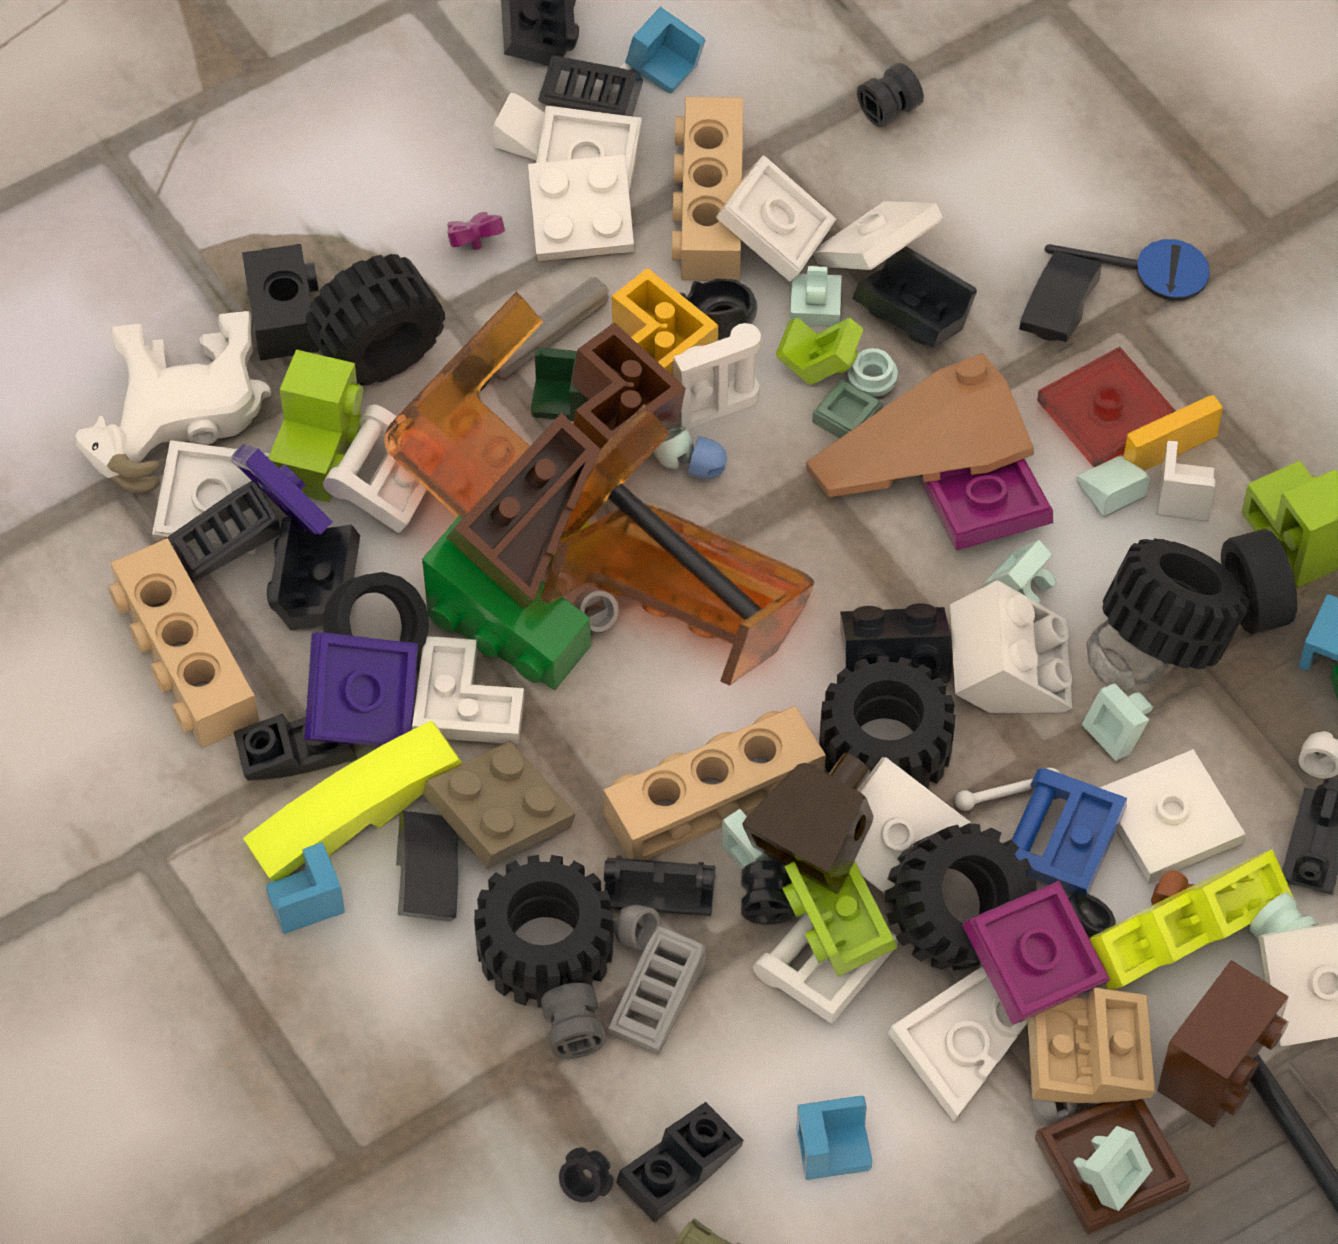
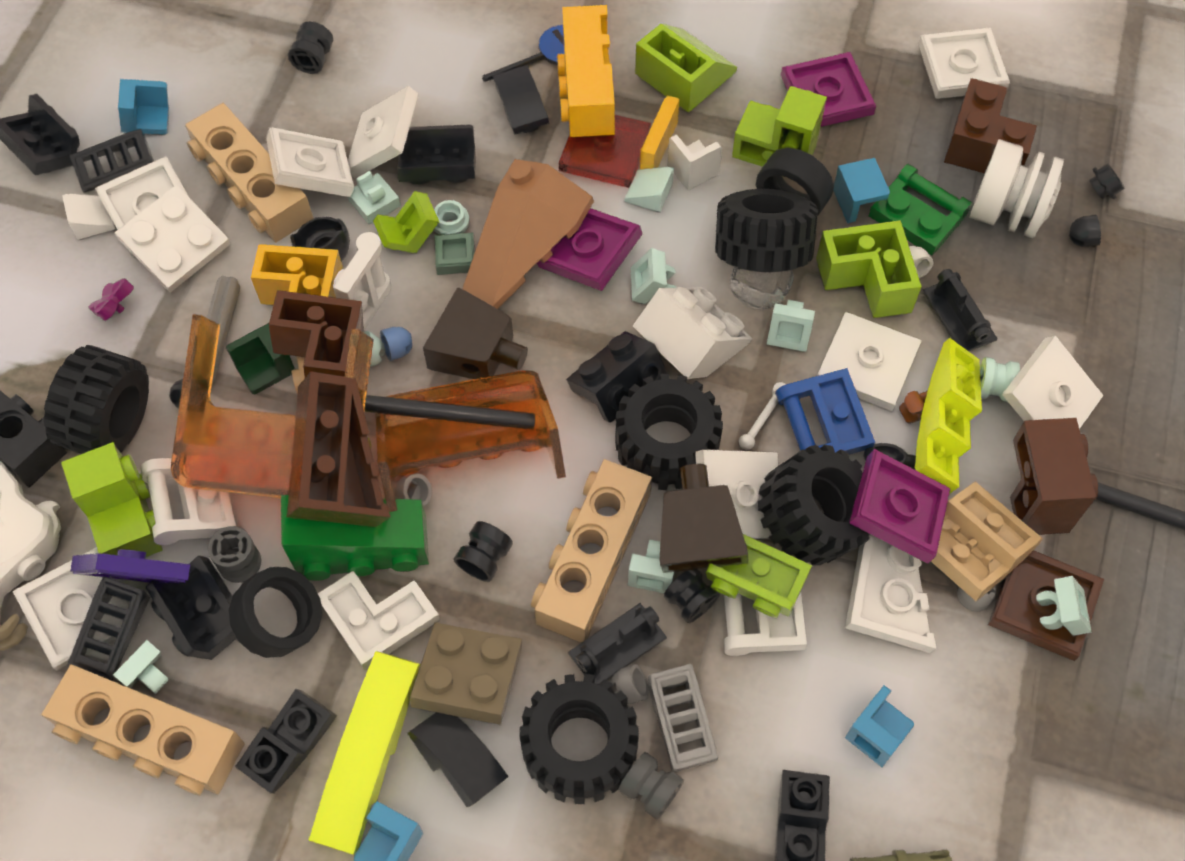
camera: 40 degrees left, 5 degrees up
(223, 587) = (141, 668): none -> light aqua tile
(359, 689) = (307, 669): dark purple plate -> none
(385, 545) = (238, 563): none -> dark grey wheel
(616, 708) = (484, 549): none -> black wheel
(780, 507) = (472, 339): none -> dark brown torso
(1147, 313) = (586, 72): none -> yellow wedge
(1267, 713) = (872, 258): none -> lime brick
(1274, 373) = (680, 65): none -> lime slope

